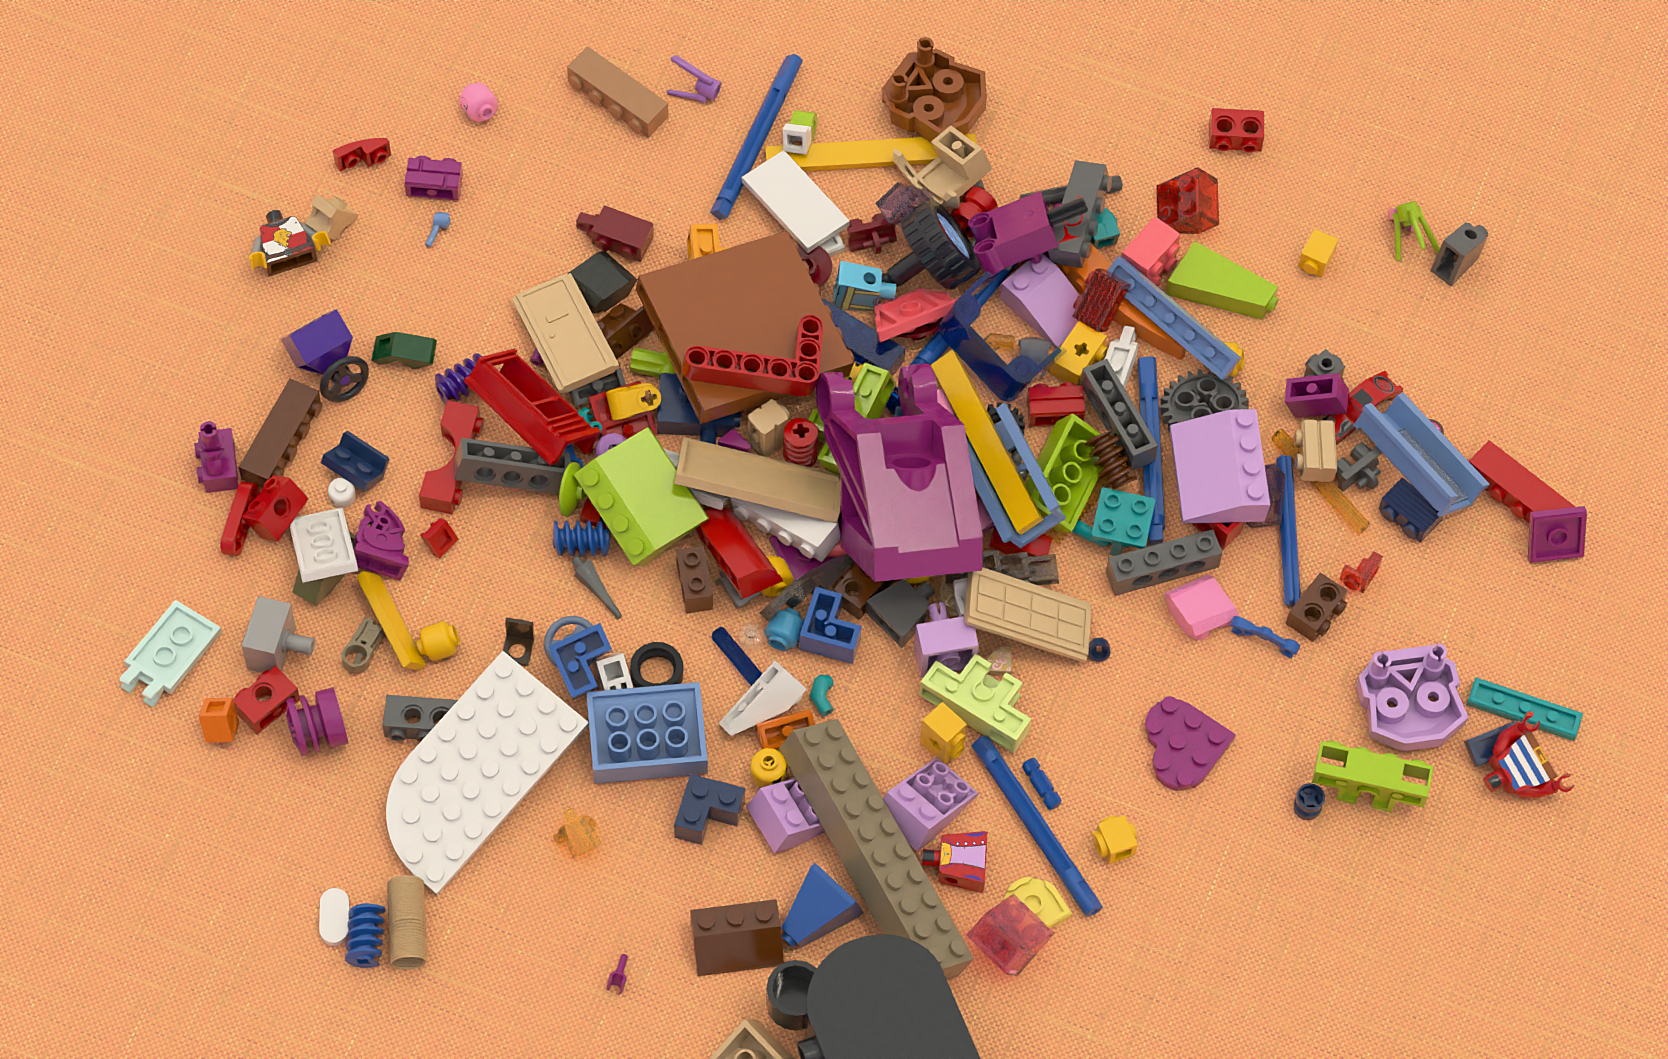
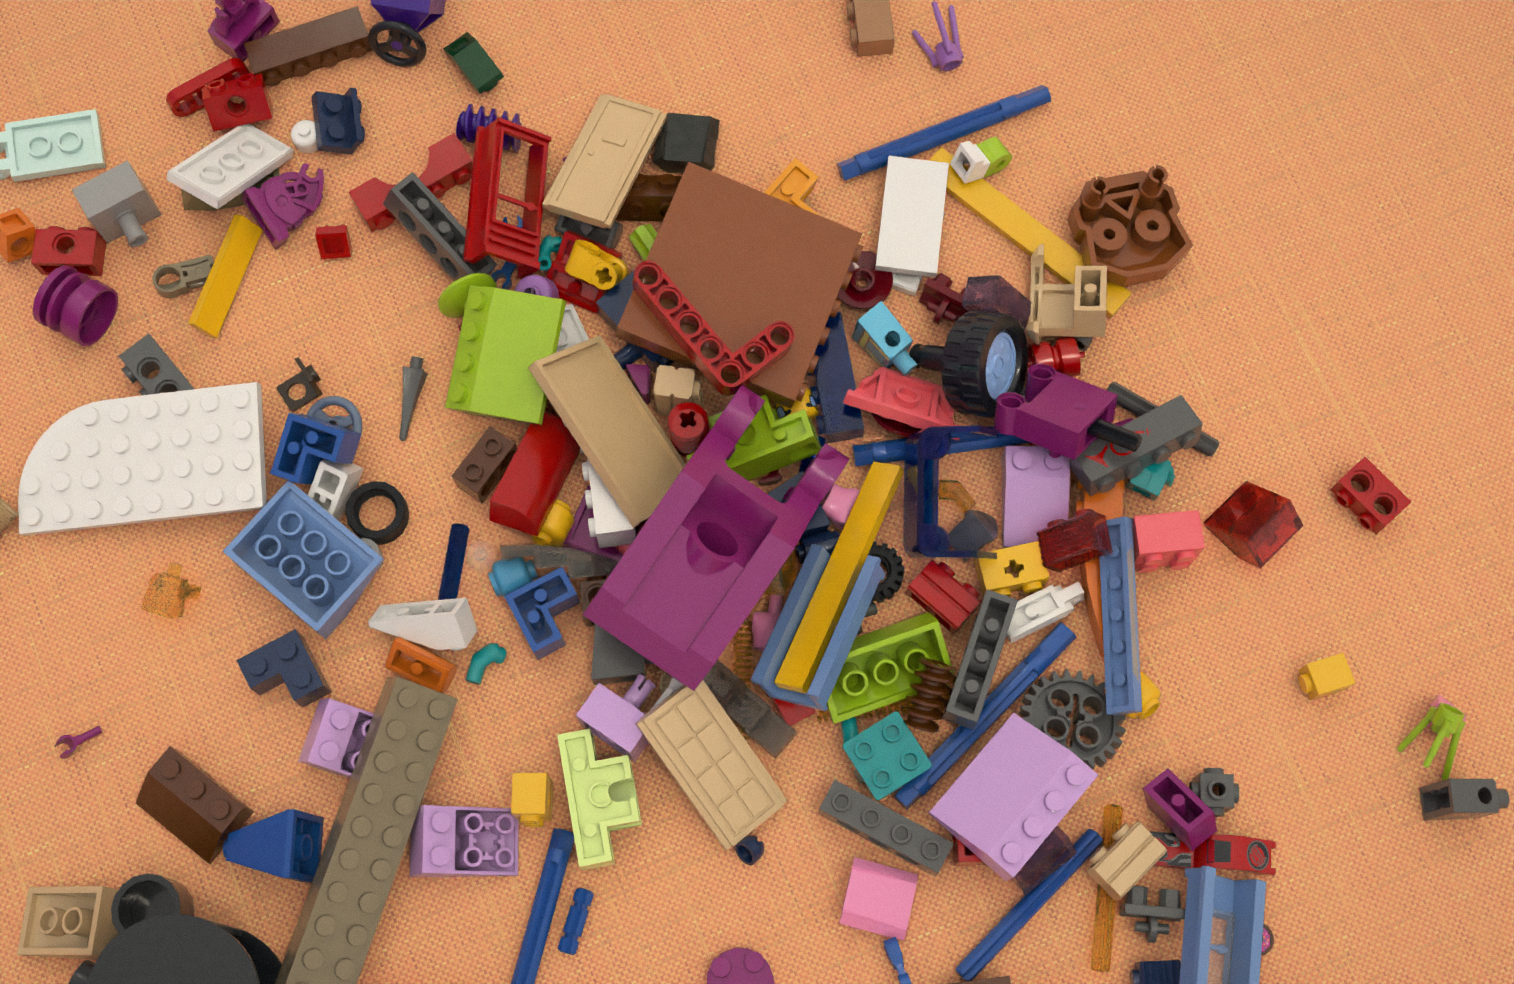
camera: 50 degrees right, 10 degrees up
(438, 641) = (241, 326): yellow head -> none
(581, 538) = (432, 343): blue piece -> none
(617, 232) = (742, 114): dark red hinge -> none
(768, 767) = (364, 675): yellow head -> none
(960, 860) = (434, 921): torso -> none
(1001, 661) = (655, 778): tan tile -> none
(1220, 283) = (1206, 620): lime slope -> none

